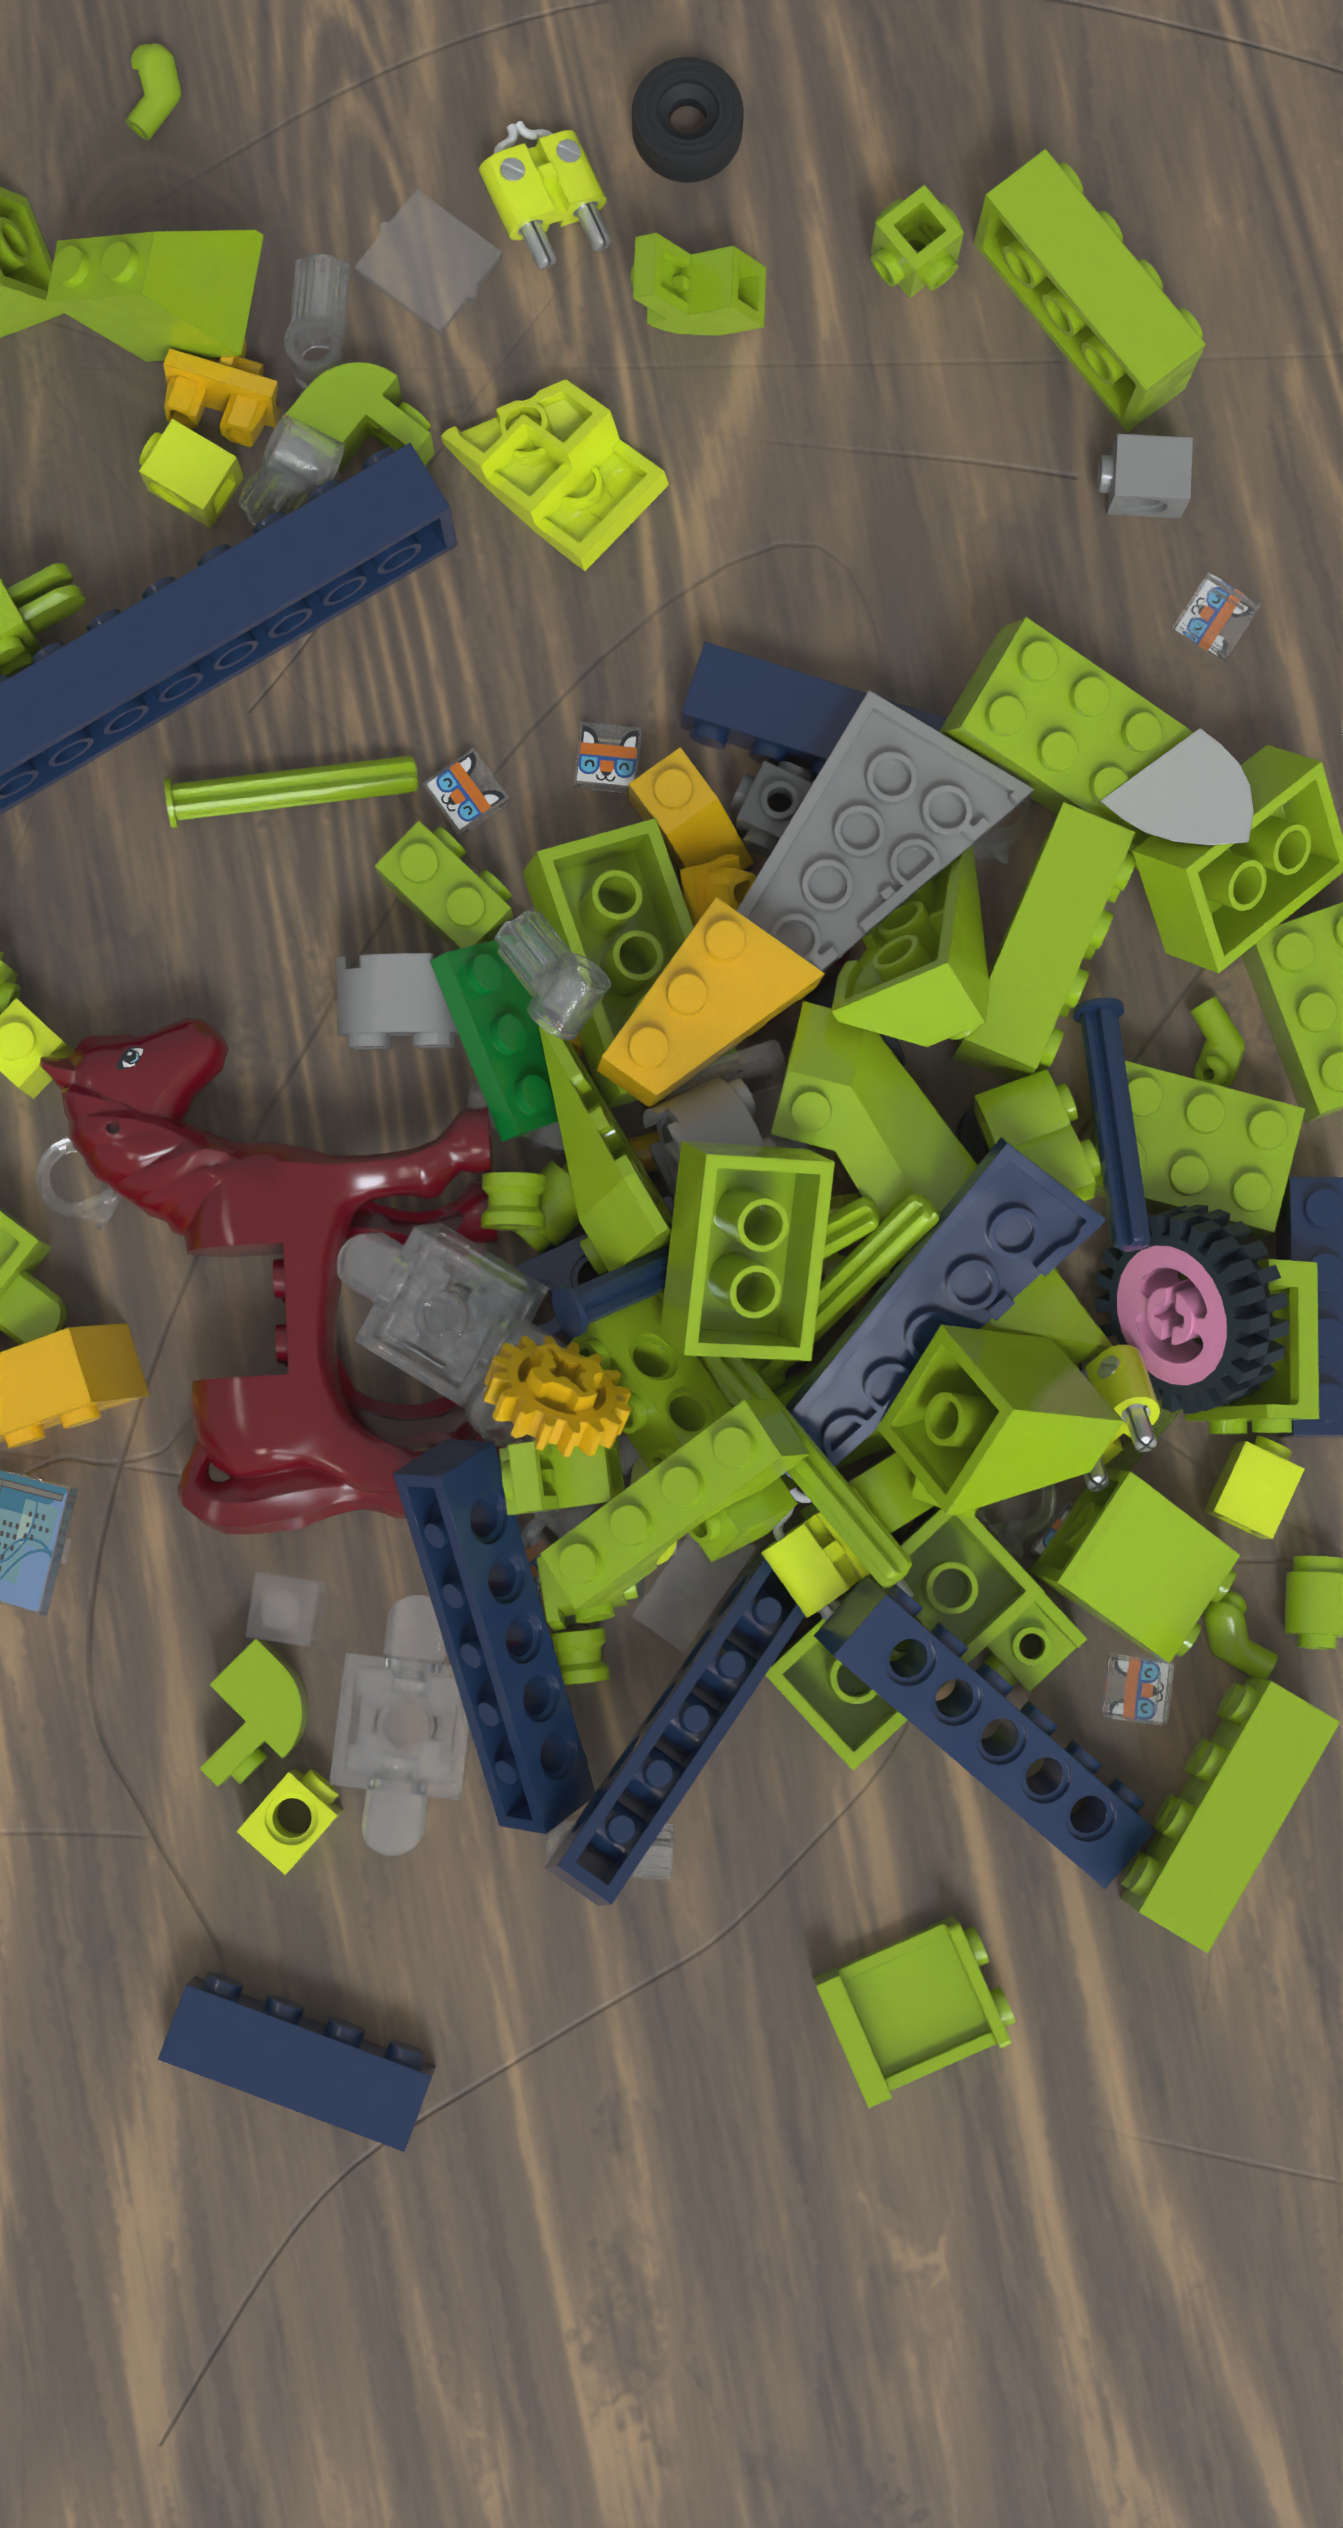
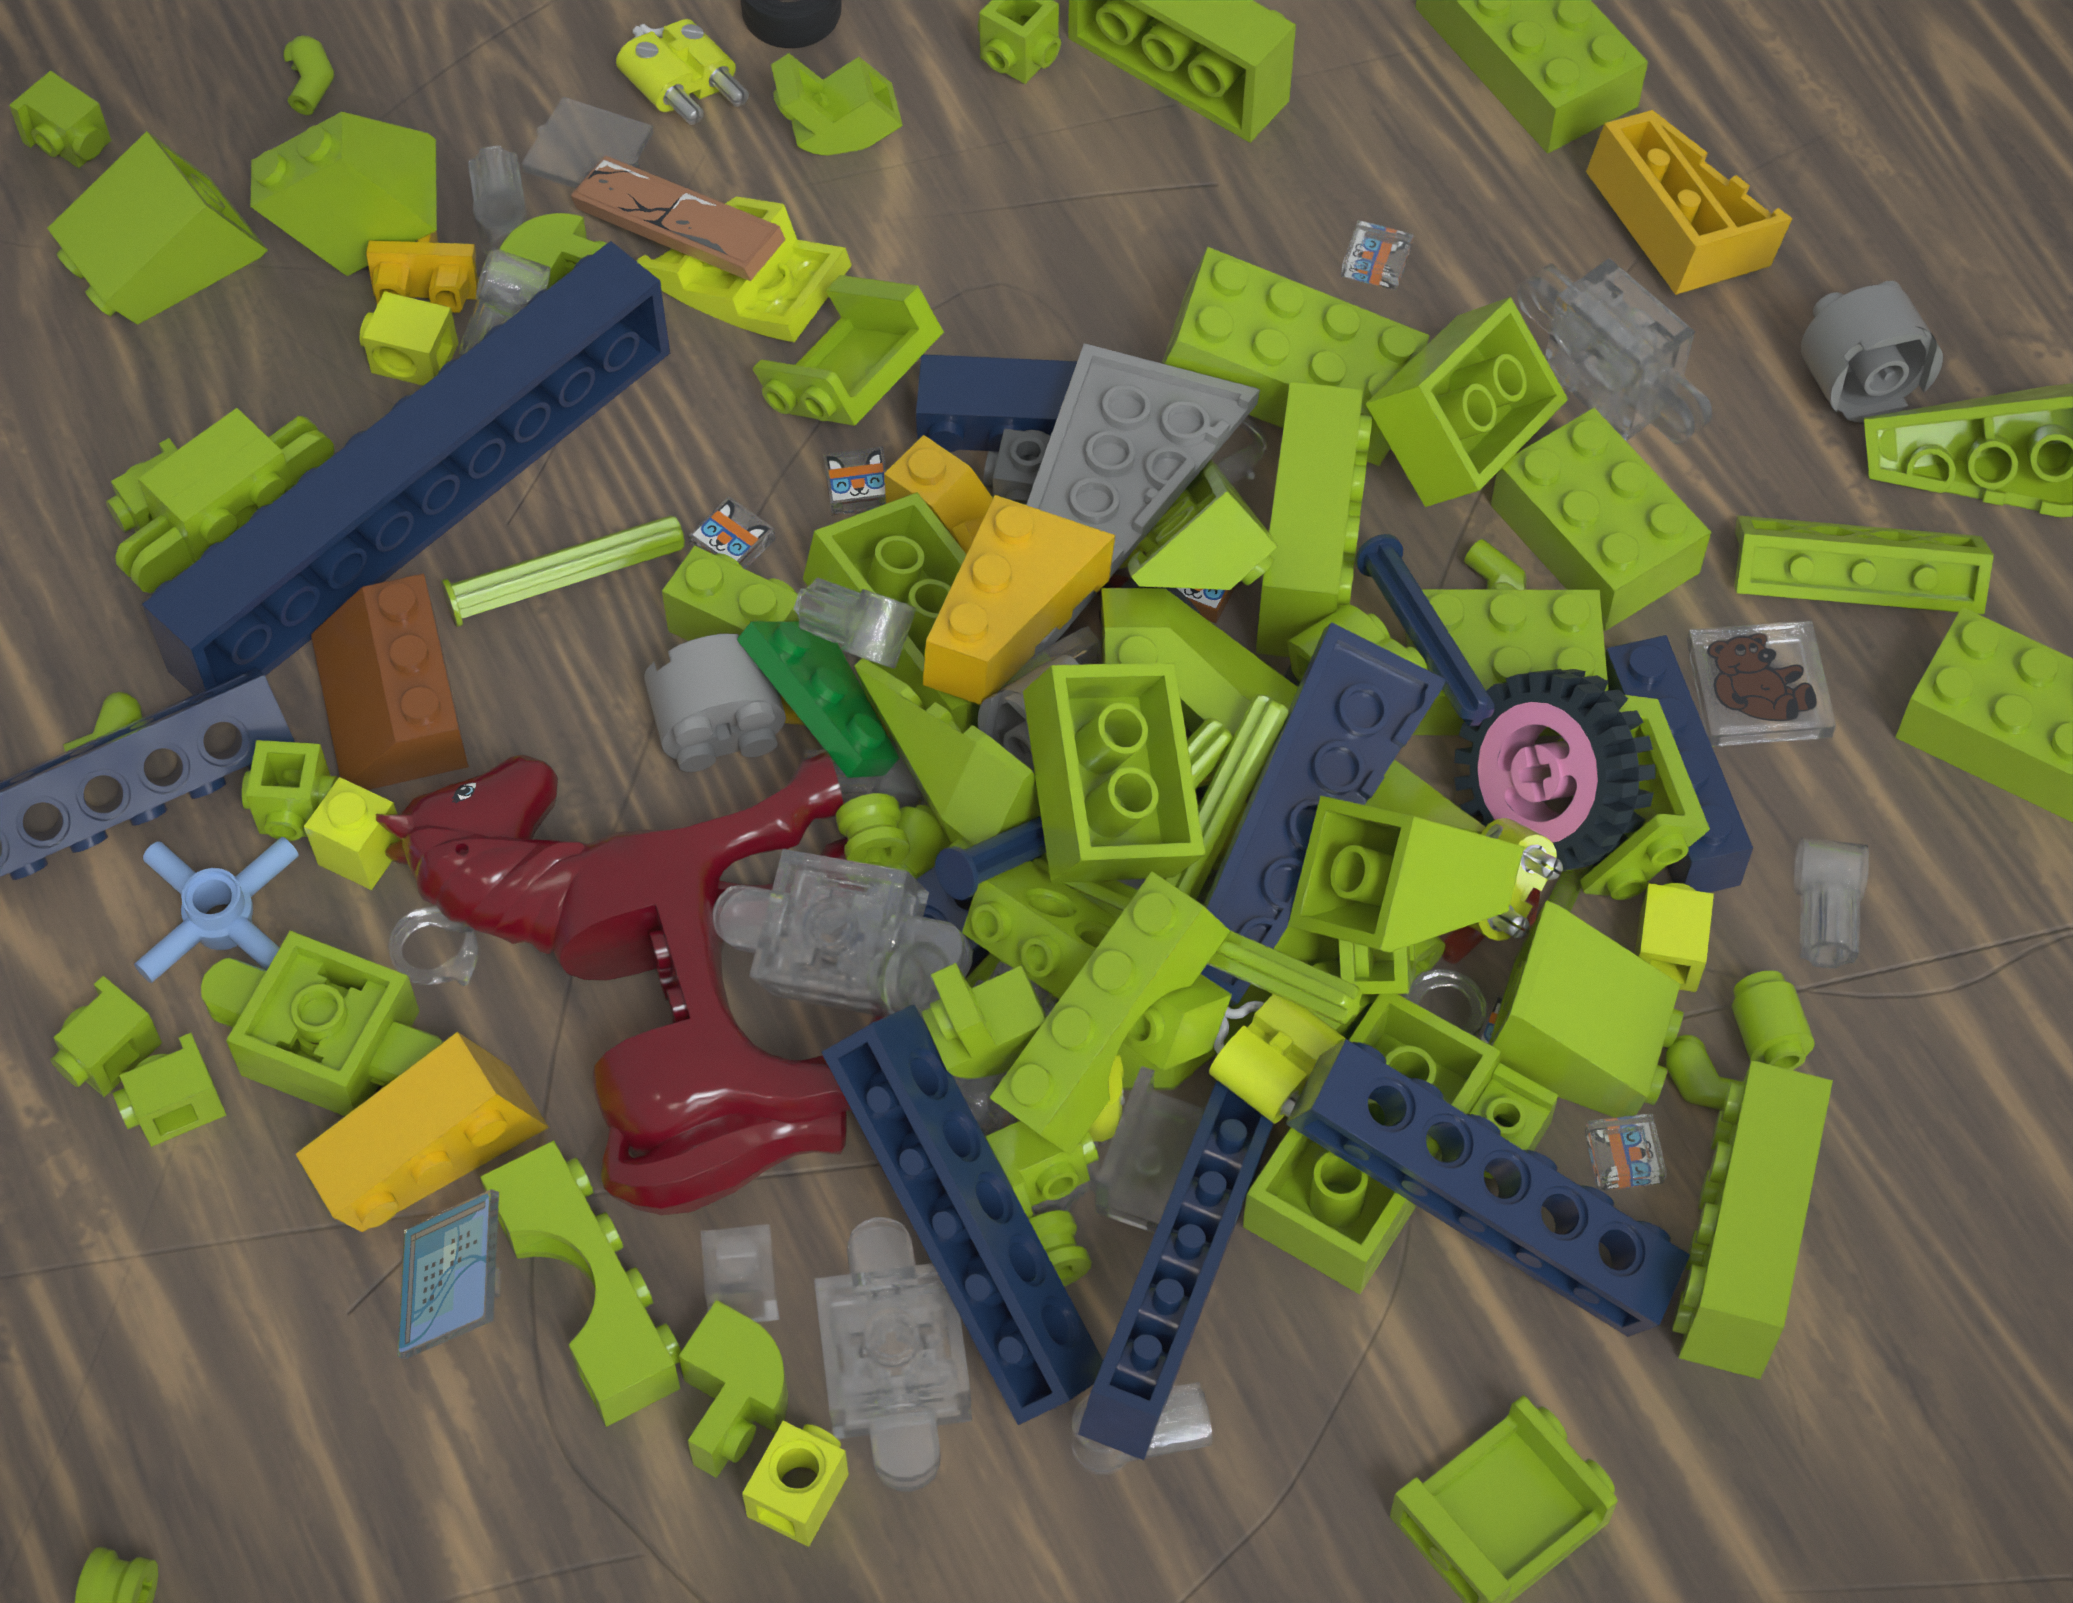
camera: 10 degrees left, 25 degrees down
(90, 886) = (388, 686): none -> dark orange slope
(165, 1650) = (619, 1349): none -> lime arch
(496, 398) = (678, 218): none -> nougat tile
(559, 1397) = (966, 932): yellow gear -> none
(636, 621) = (859, 358): none -> lime panel
(1147, 475) = (1278, 159): light grey brick -> none
(1189, 795) = (1401, 345): white sticker -> none

